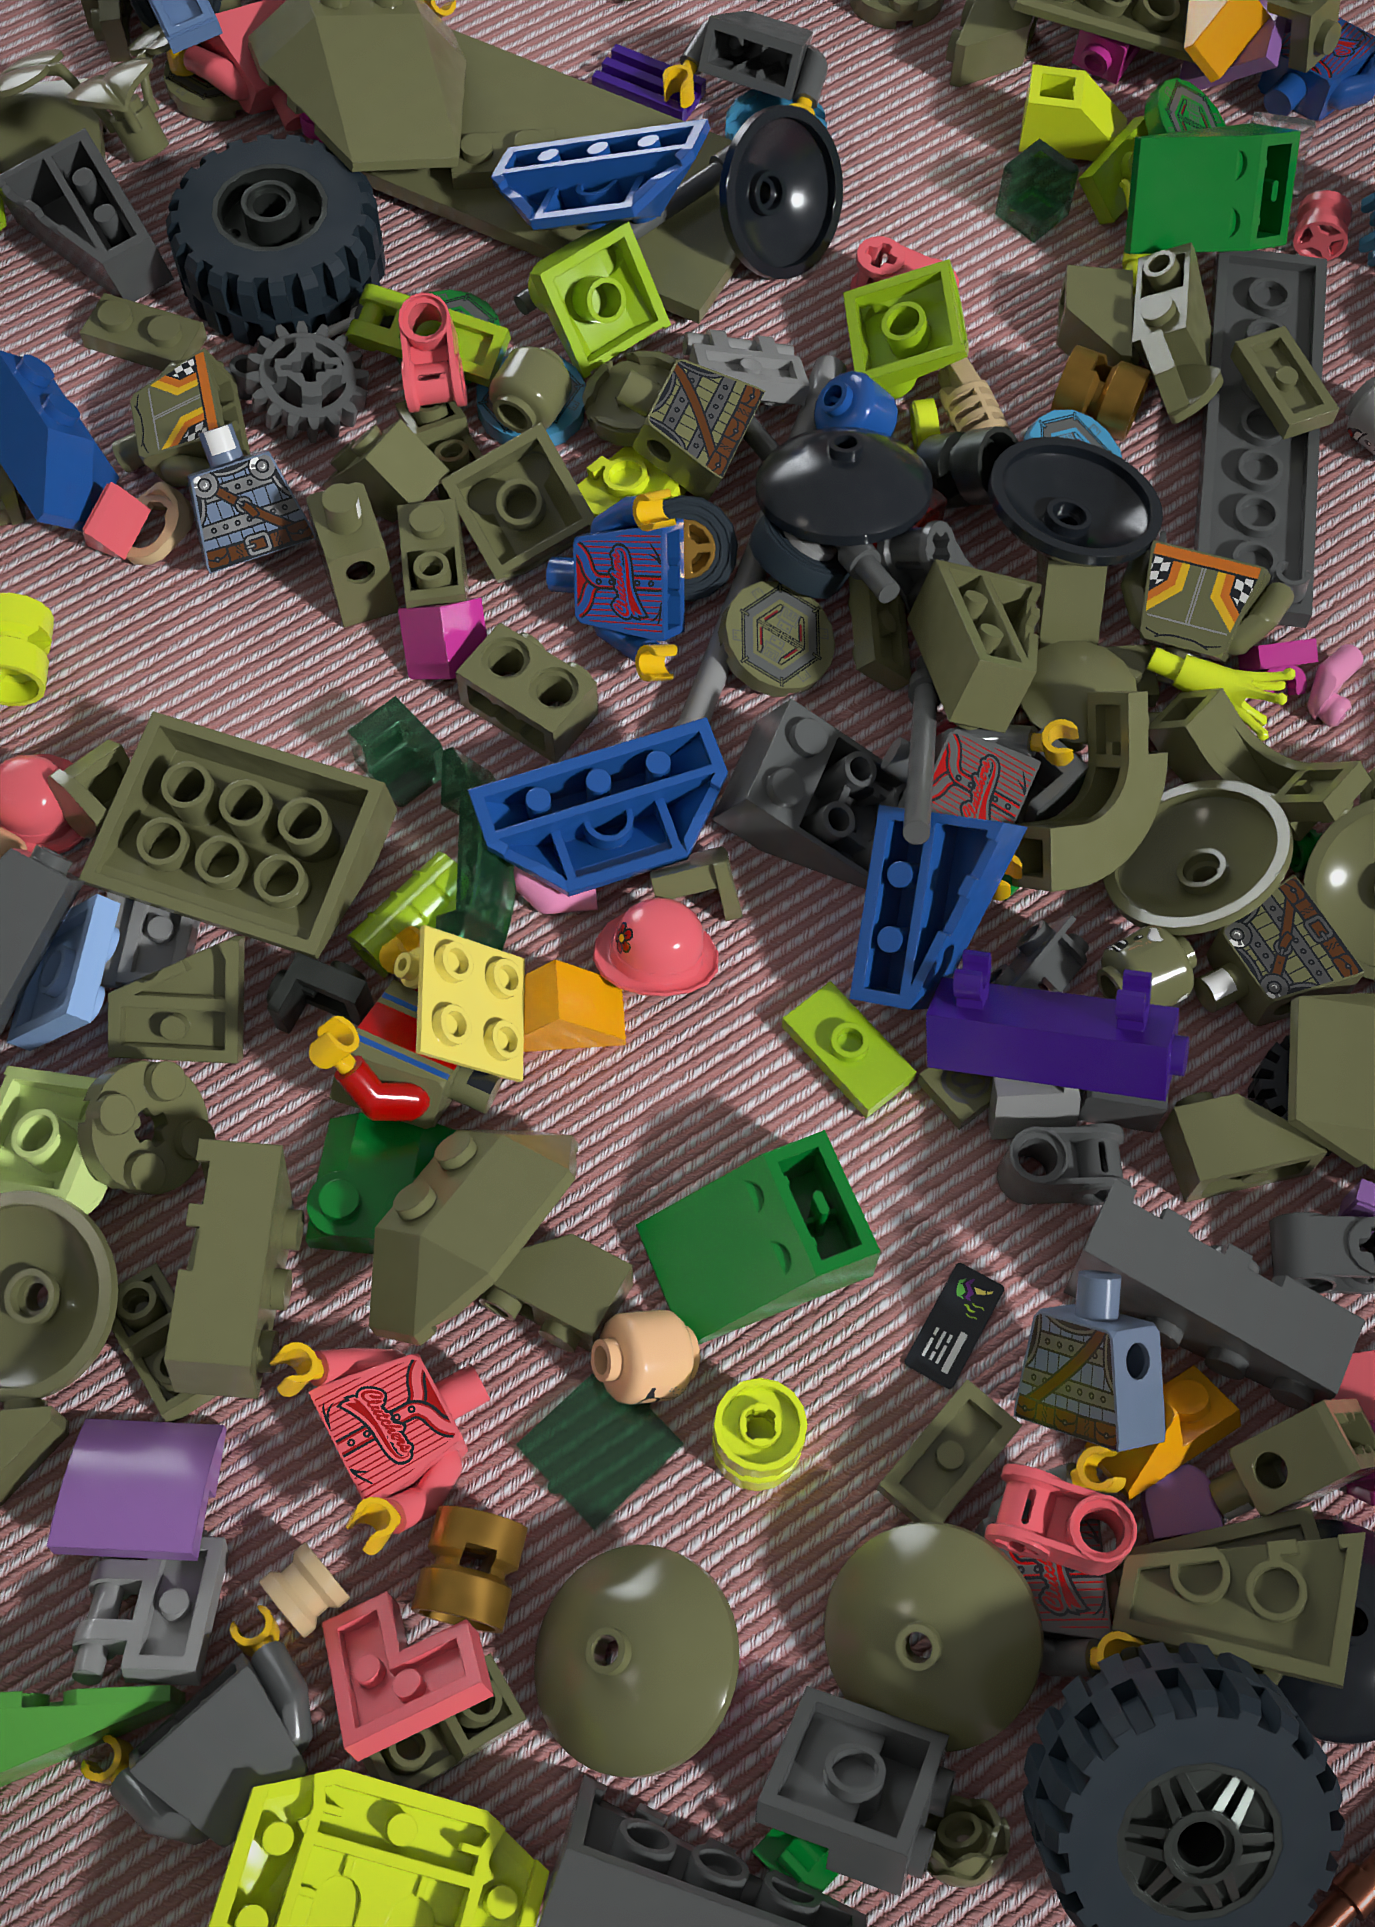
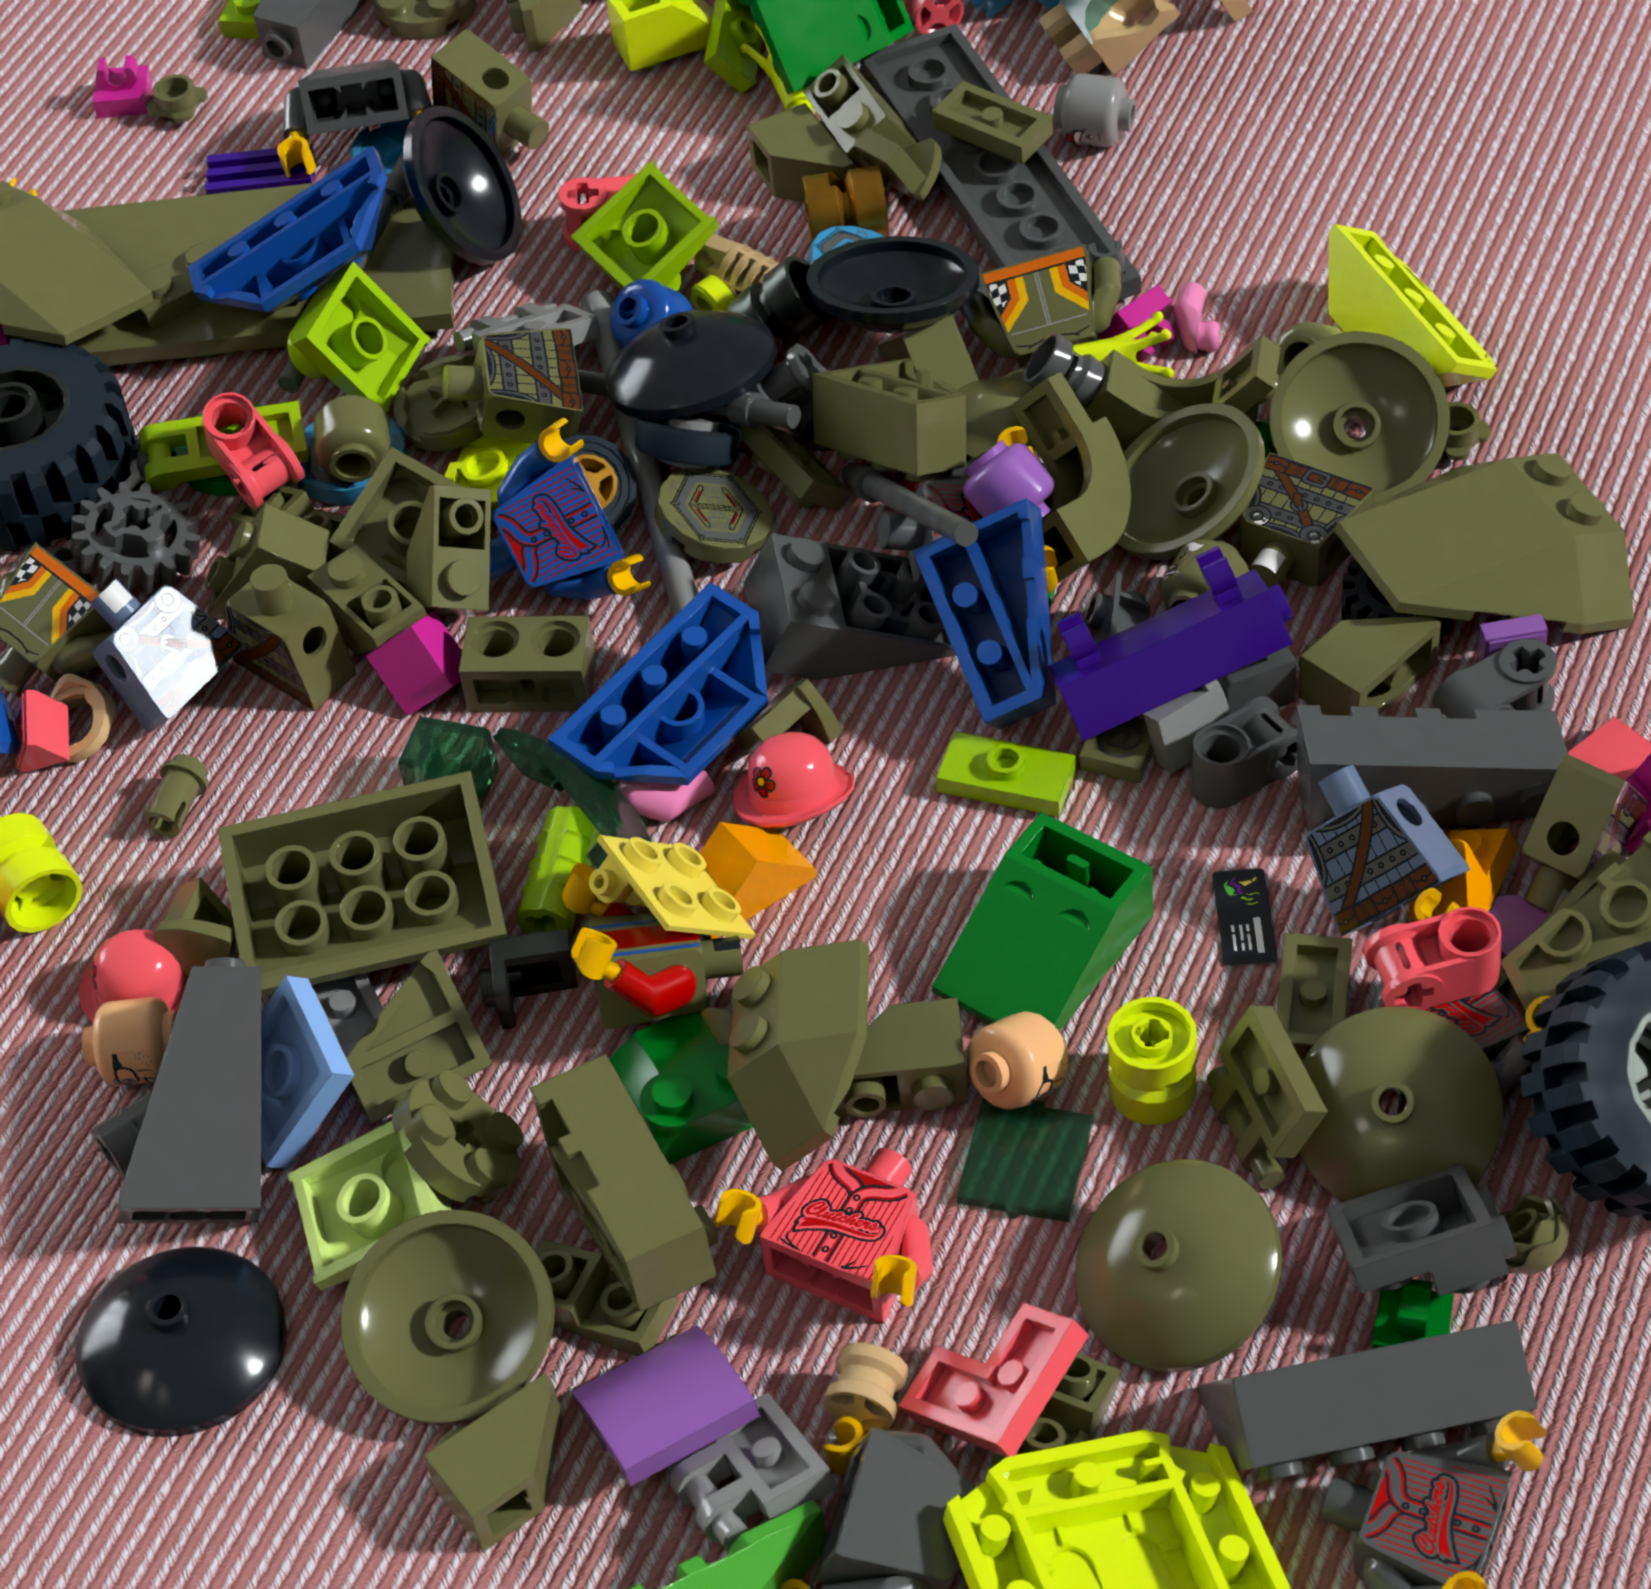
camera: 25 degrees left, 15 degrees down
(177, 644) = (181, 782): none -> olive pin
(460, 1593) = (987, 1280): pearl gold wheel -> none
(521, 555) = (451, 551): none -> olive slope
(827, 1543) = (1264, 1095): none -> olive plate
(867, 112) = (487, 90): none -> olive torso
(1024, 779) = (1005, 477): none -> medium lavender head
(1036, 190) = (674, 88): clear green panel -> none
(1169, 688) = (1057, 355): none -> dark grey wheel

